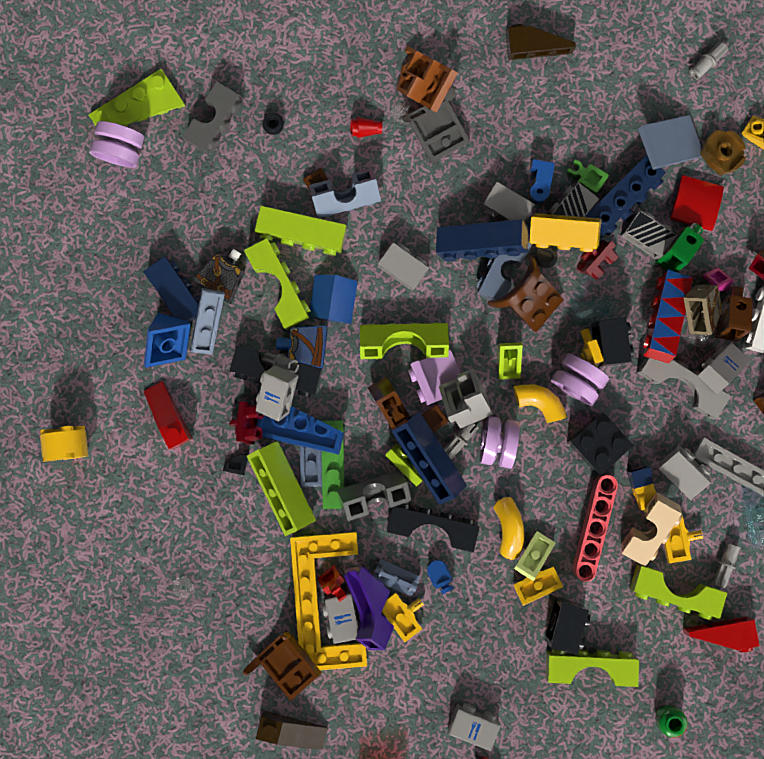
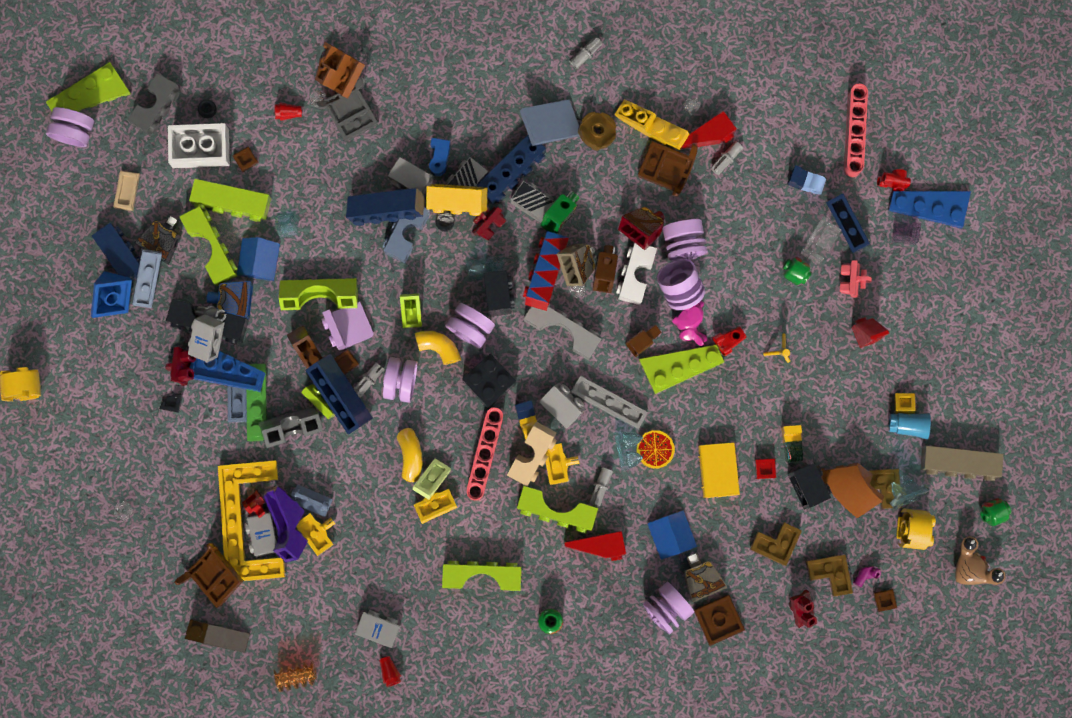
camera: 10 degrees left, 5 degrees down
(167, 416) = (111, 362): red slope -> none
(182, 218) = (126, 190): none -> tan tile
(264, 166) = (198, 145): none -> white brick
(281, 488) = (210, 422): lime brick -> none
(361, 193) = (254, 174): arch -> none
(364, 260) = (286, 225): none -> clear light blue slope
(403, 266) = (318, 230): light grey brick -> none
(440, 576) = (349, 498): blue arm -> none
(461, 533) = (318, 450): black arch -> none
(465, 399) = (371, 343): light grey plate -> none
(532, 42) = (430, 38): dark brown slope -> none
(532, 298) = (429, 256): reddish brown piece -> none
(567, 626) = (458, 537): black brick -> none
(590, 178) = (482, 154): bright green plate -> none
(591, 350) = (479, 302): yellow plate -> none
(697, 202) = (575, 174): red slope -> none
(719, 278) = (594, 240): dark pink slope -> none
(724, 368) = (595, 314): light grey brick -> none

